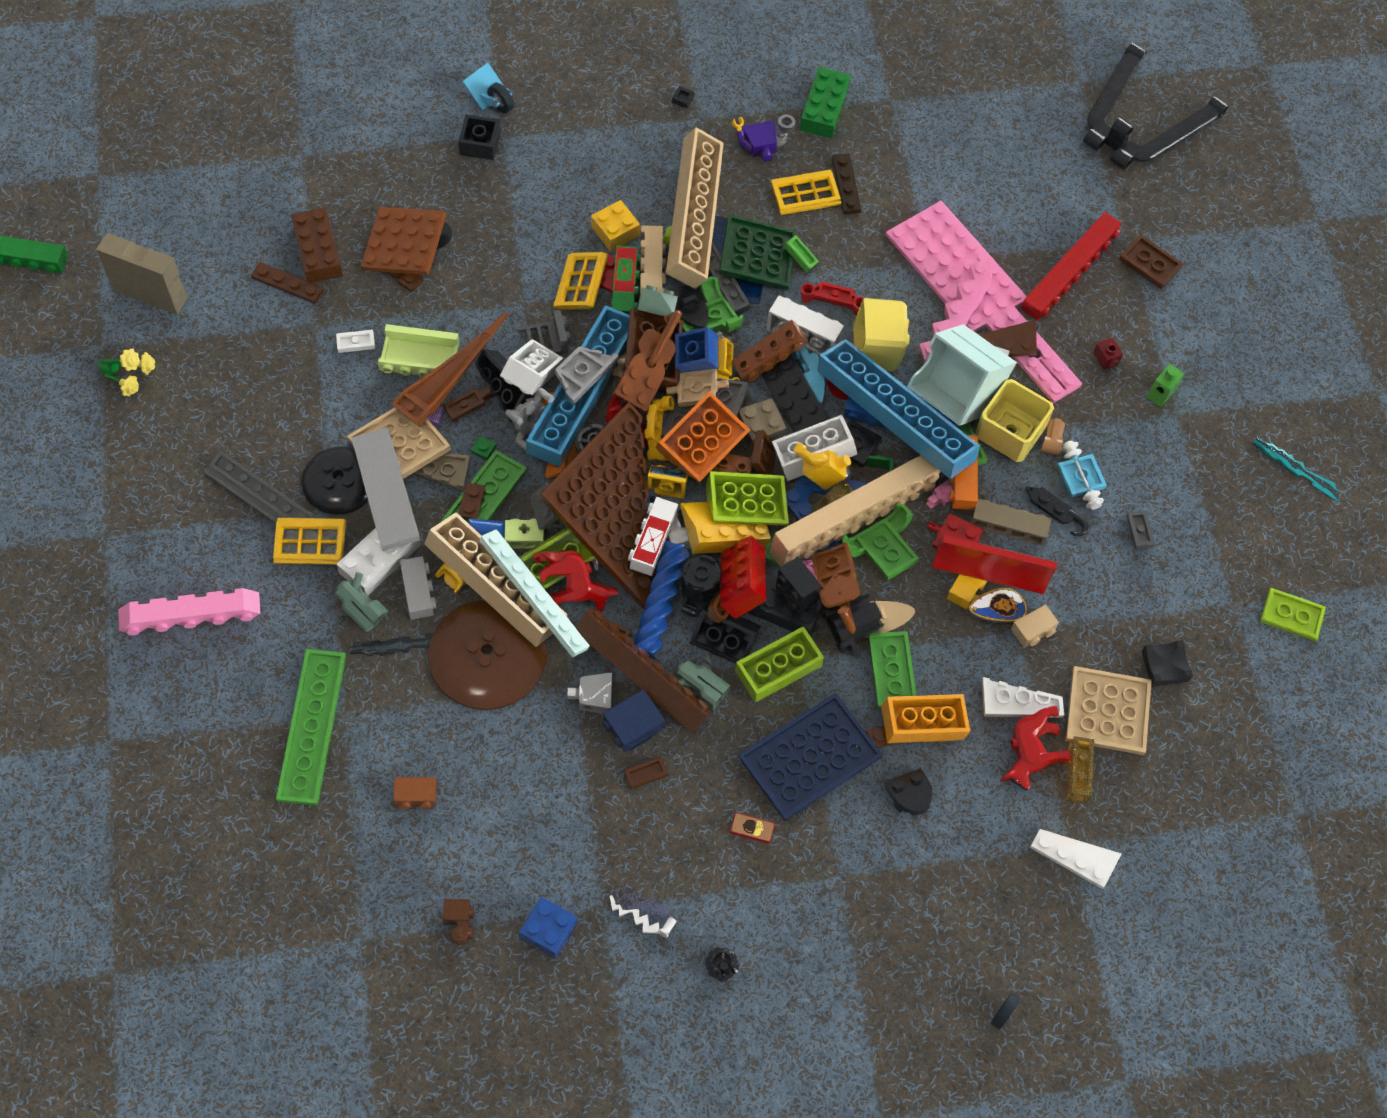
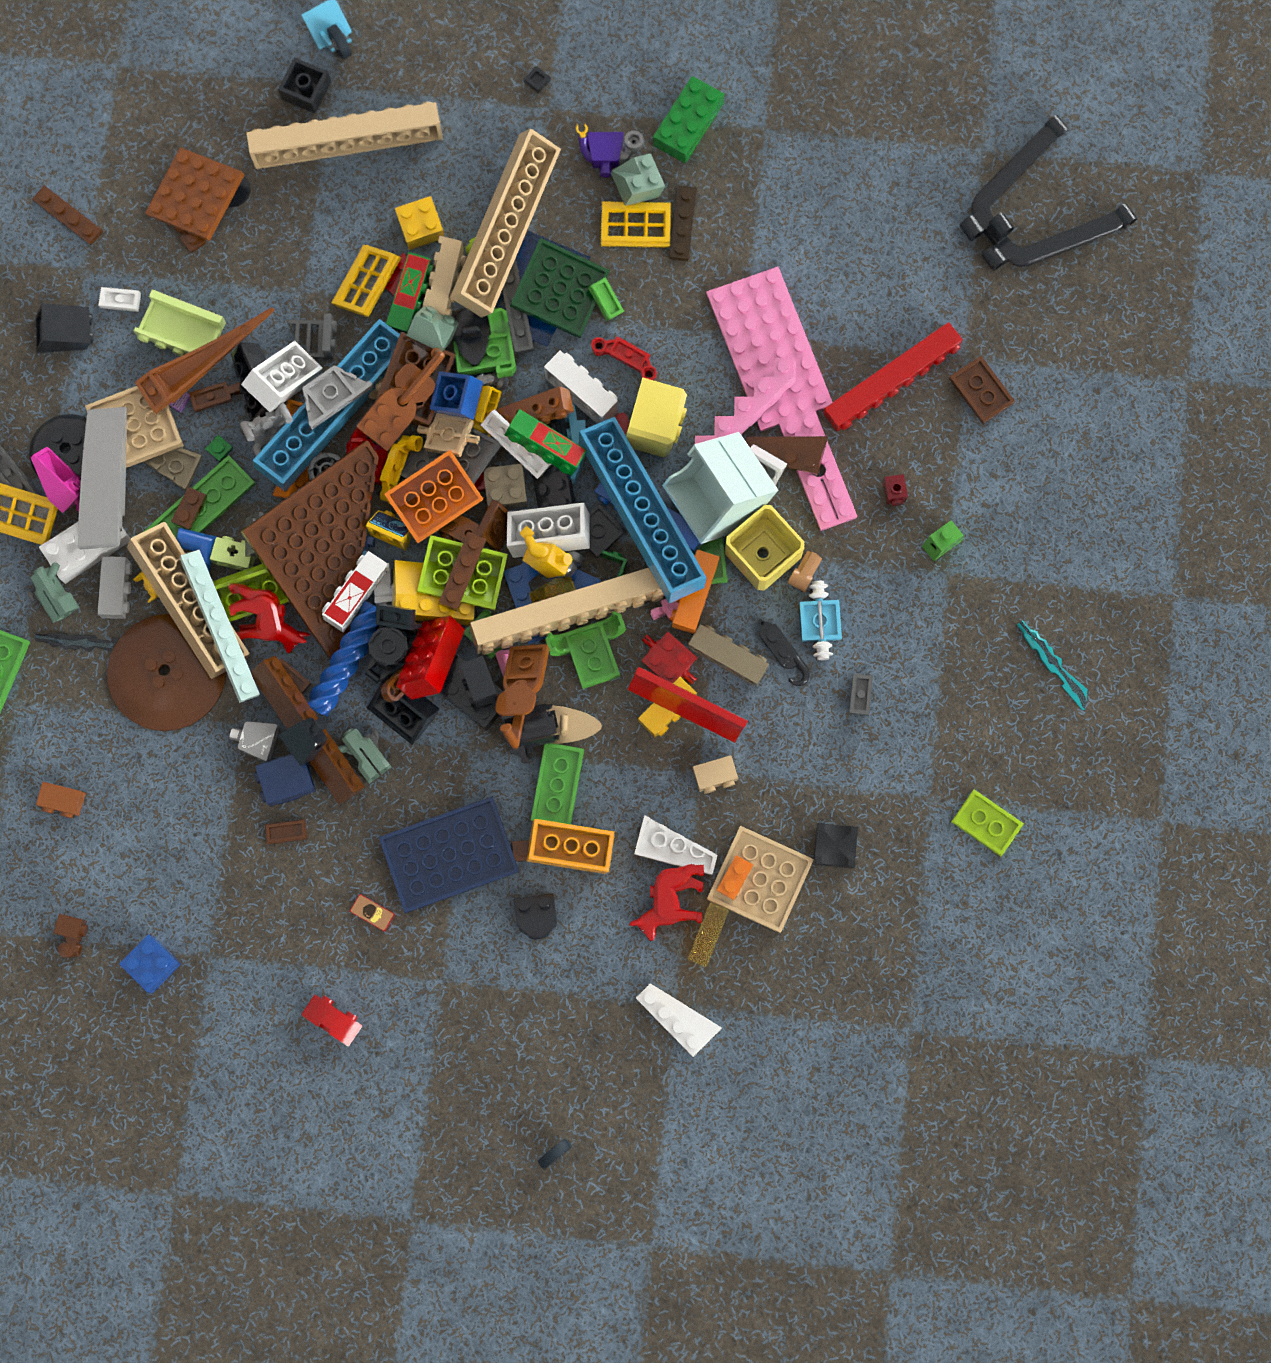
camera: 20 degrees right, 15 degrees up
(308, 374) = (63, 328): none -> black slope
(316, 245) = (105, 179): reddish brown brick -> none
(346, 504) = (57, 479): none -> dark pink slope
(528, 168) = (344, 135): none -> tan brick
(635, 906) = (239, 962): piece -> none
(647, 673) = (305, 739): none -> black torso
(702, 545) = (396, 617): none -> black panel
(722, 964) = (301, 1040): black piece -> none
(745, 936) = (332, 1020): none -> red brick
(749, 496) = (462, 571): none -> reddish brown plate
(762, 381) = (497, 426): none -> white plate
(779, 664) = (444, 754): lime brick -> none
(791, 371) = (545, 442): none -> green brick
(798, 155) = (638, 180): none -> sand green slope
(999, 606) = (685, 744): shield -> none
(1086, 712) = (734, 877): none -> orange plate

